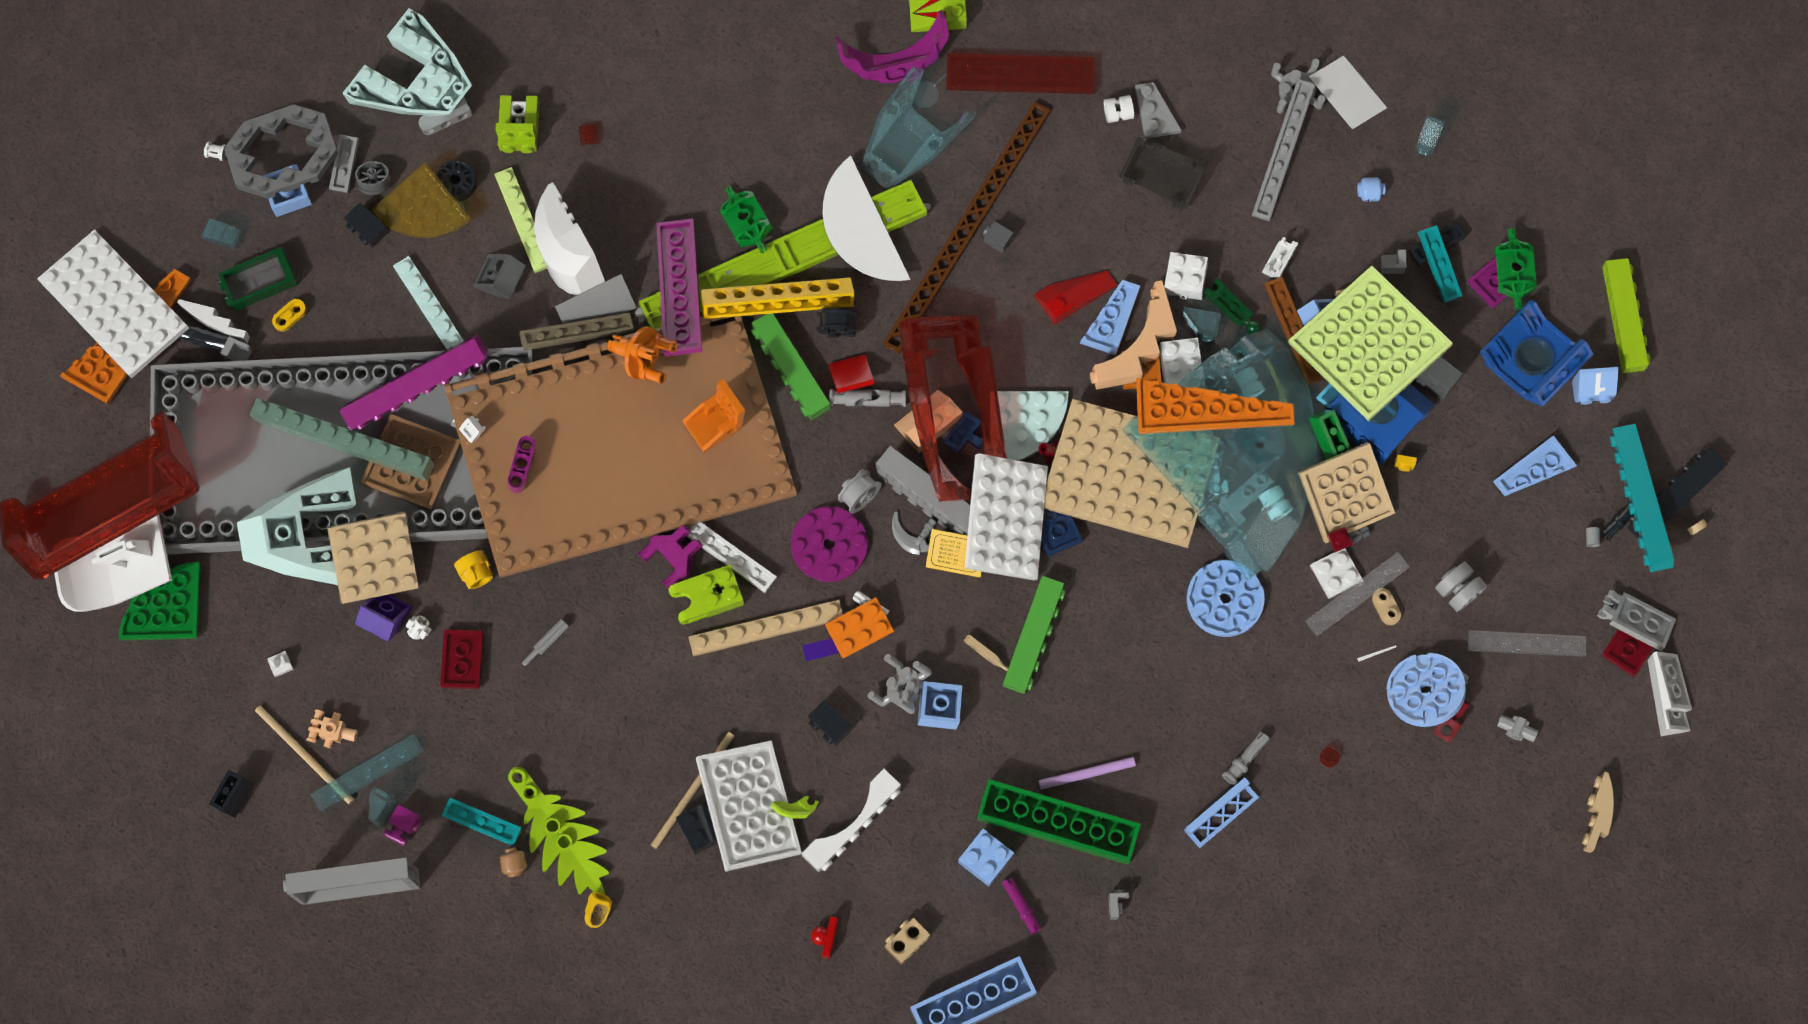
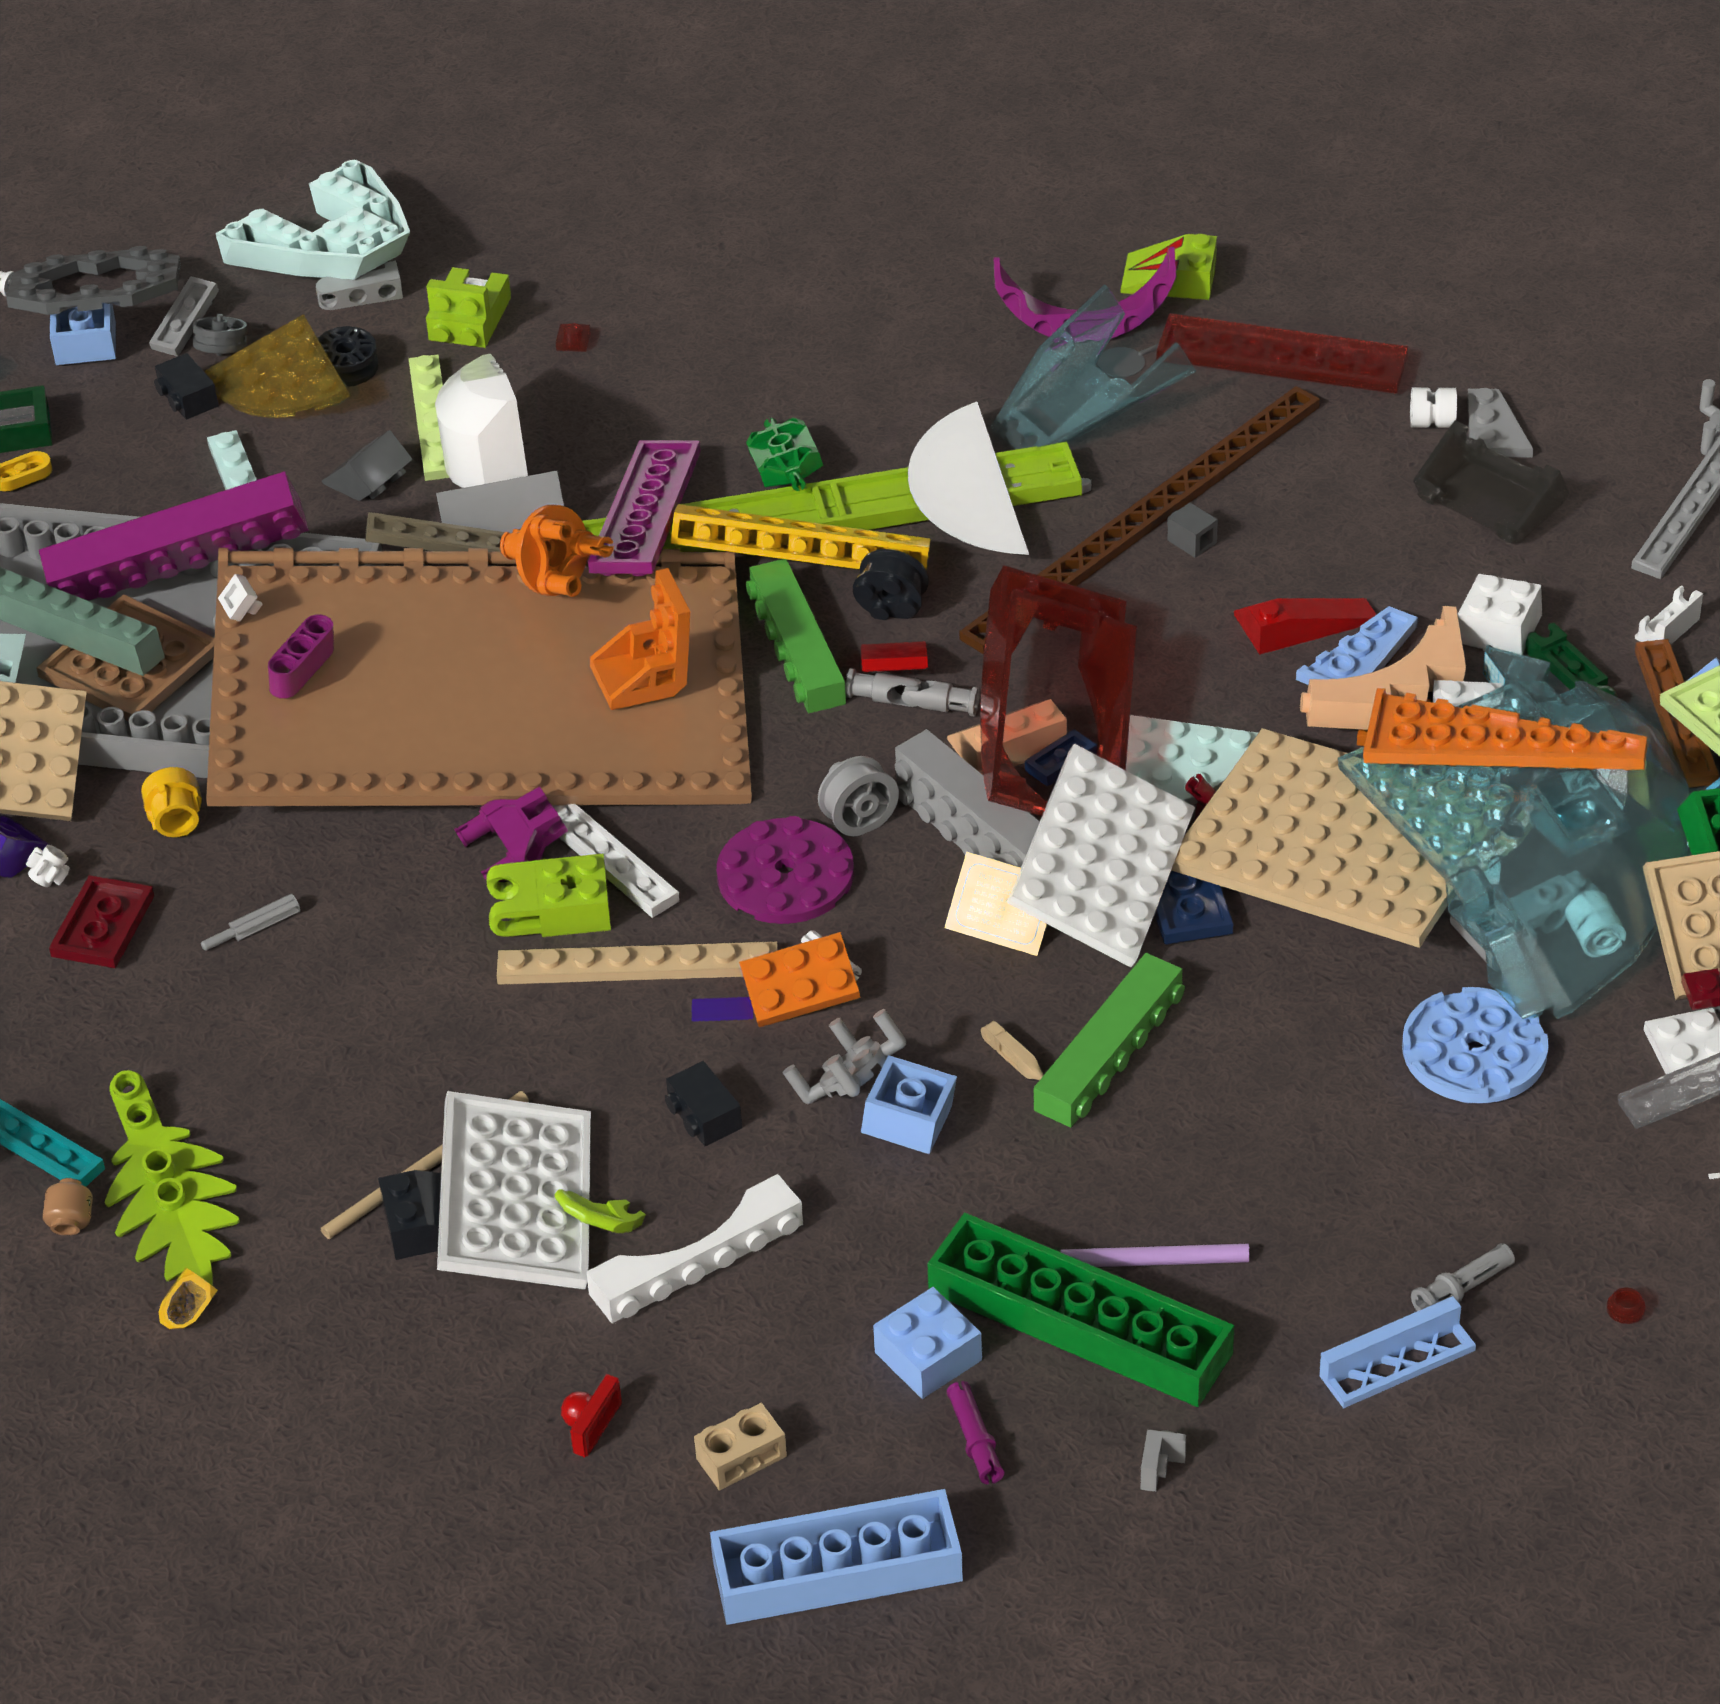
camera: 15 degrees right, 30 degrees down
(910, 543) = (924, 889): light grey piece -> none

